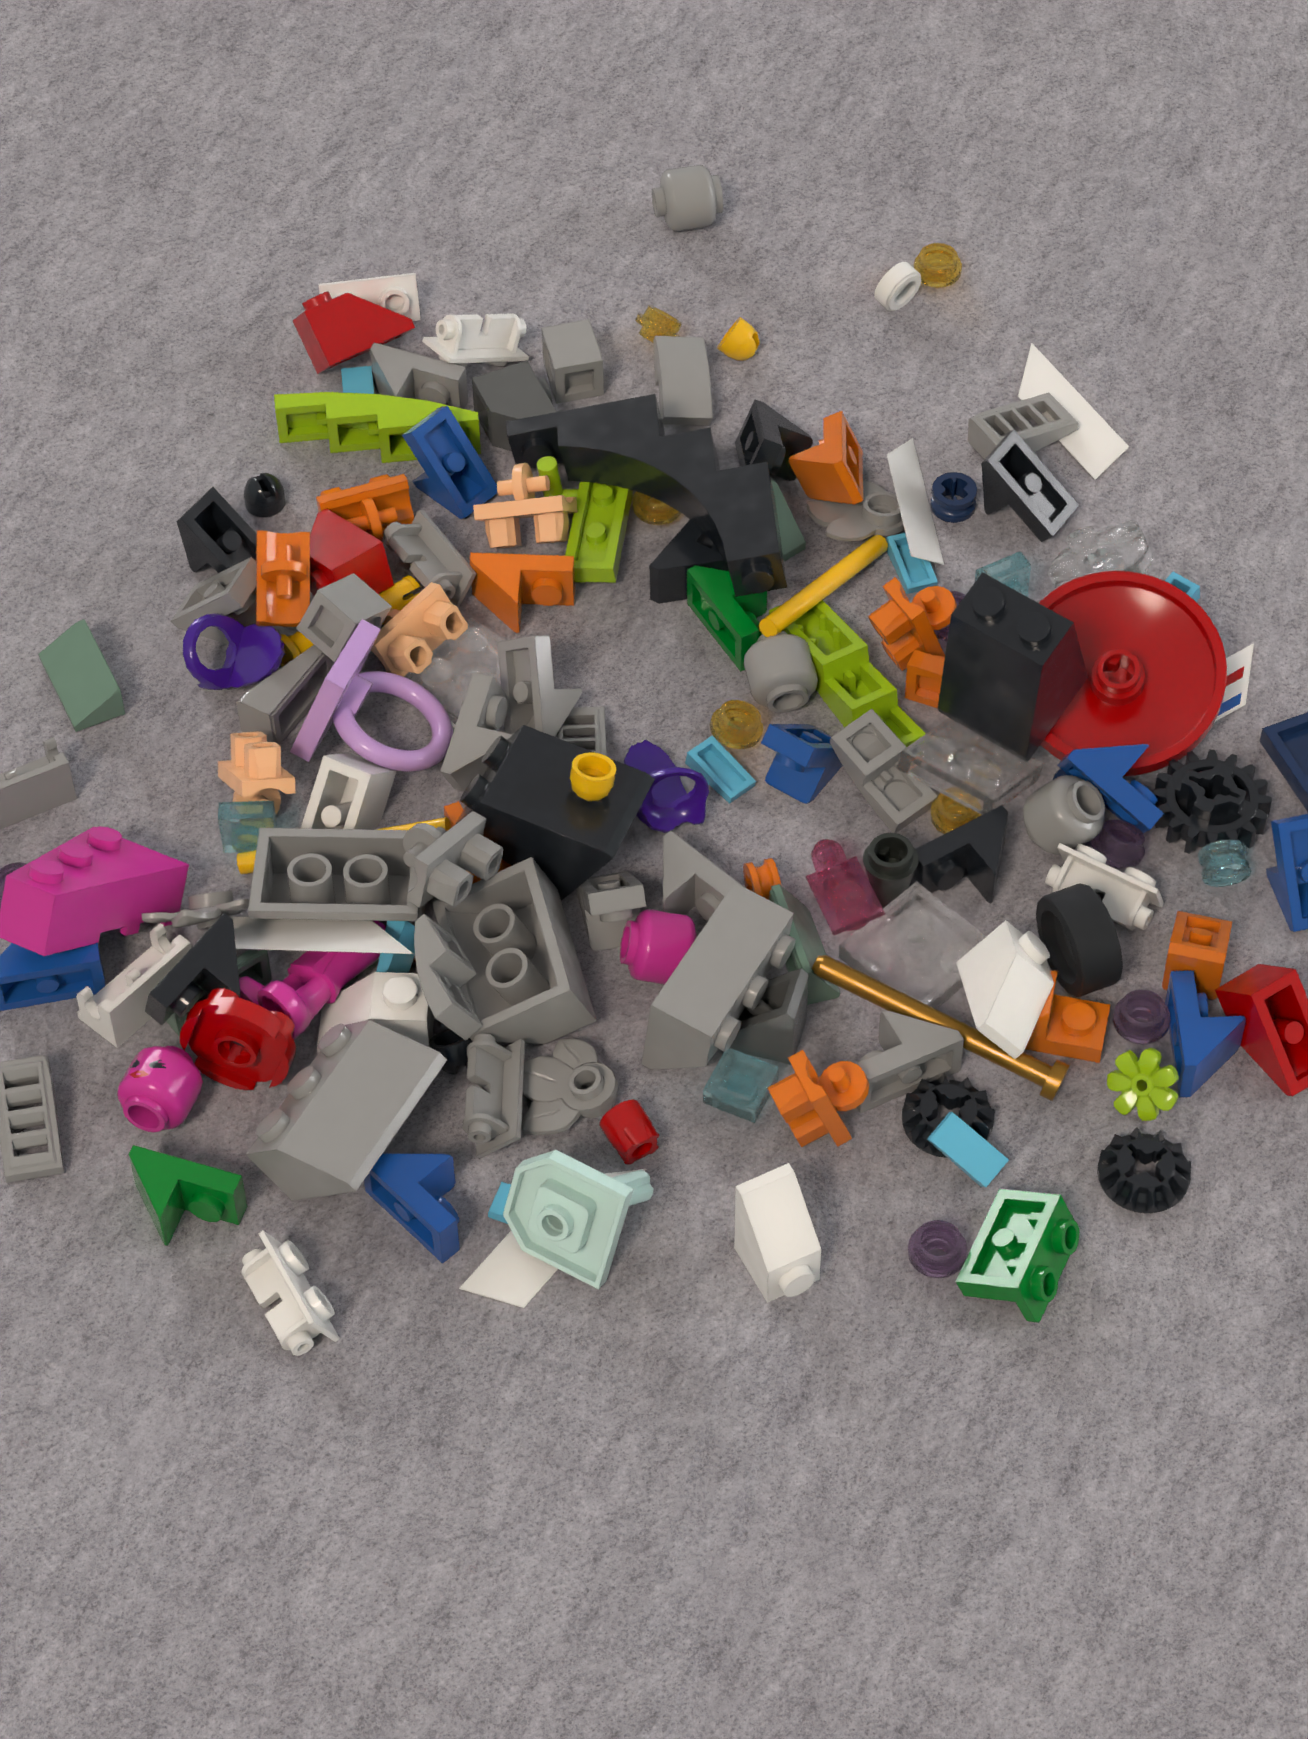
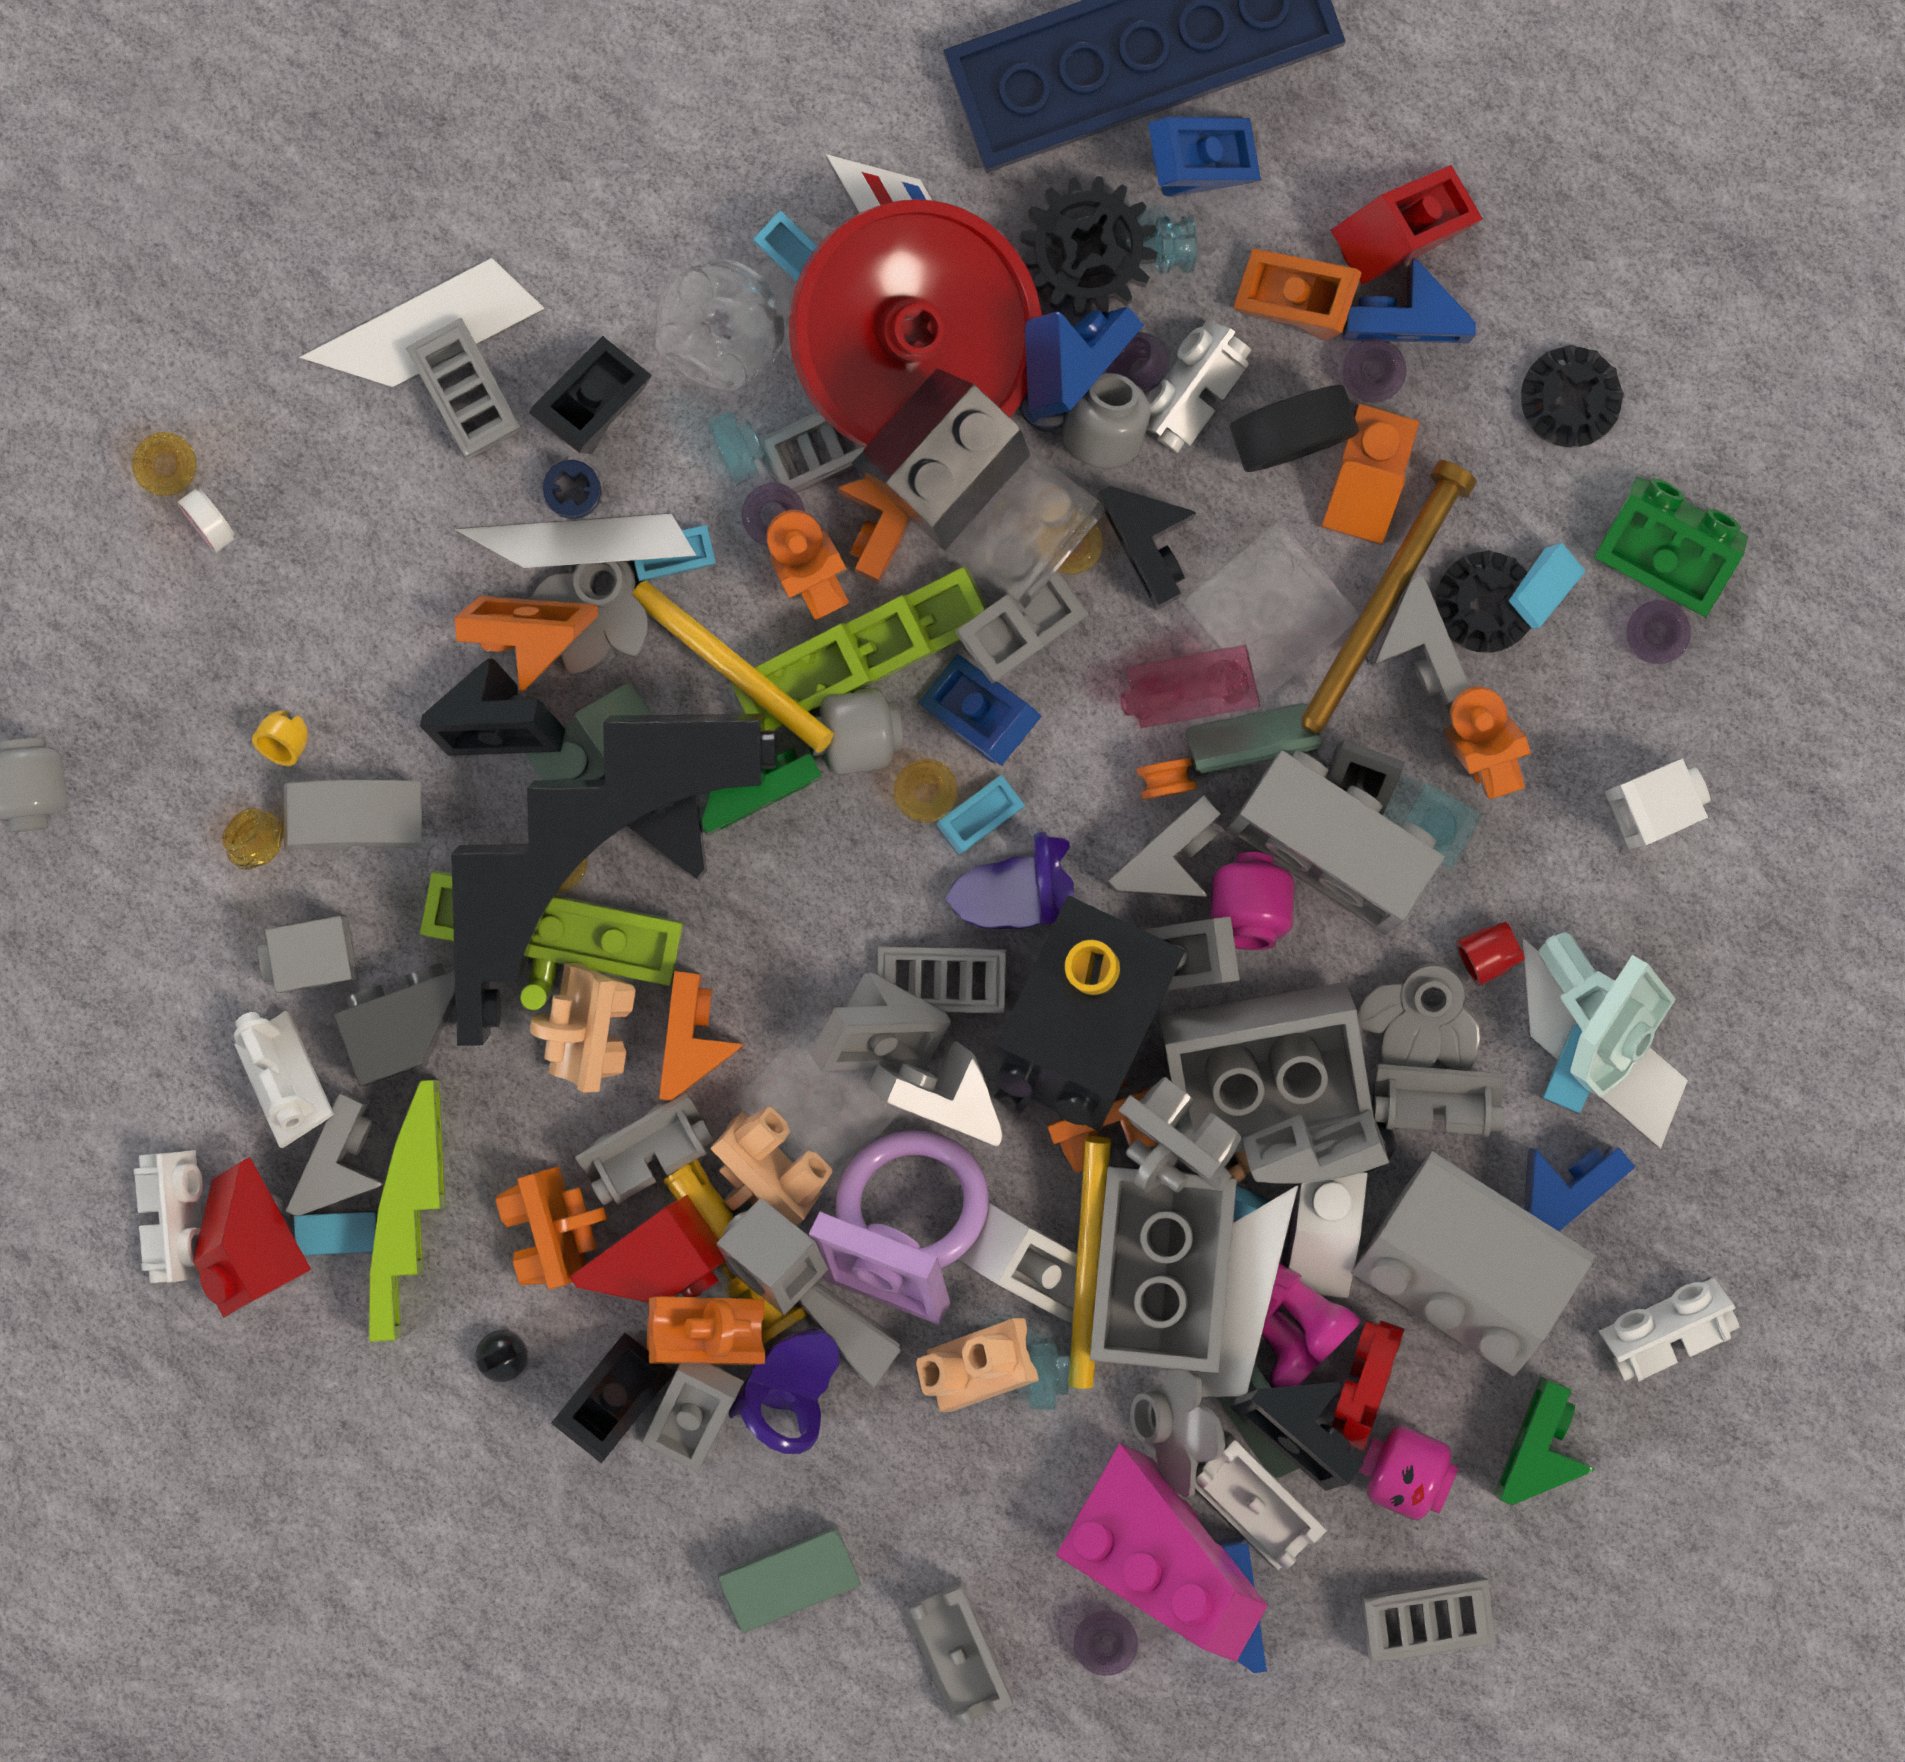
camera: 90 degrees left, 35 degrees up
(451, 465) = (490, 1118): blue slope -> none
(890, 865) = (1177, 611): pearl dark grey cone -> none
(1007, 985) = (1362, 520): white slope -> none
(1143, 1084) = (1472, 381): lime plant -> none

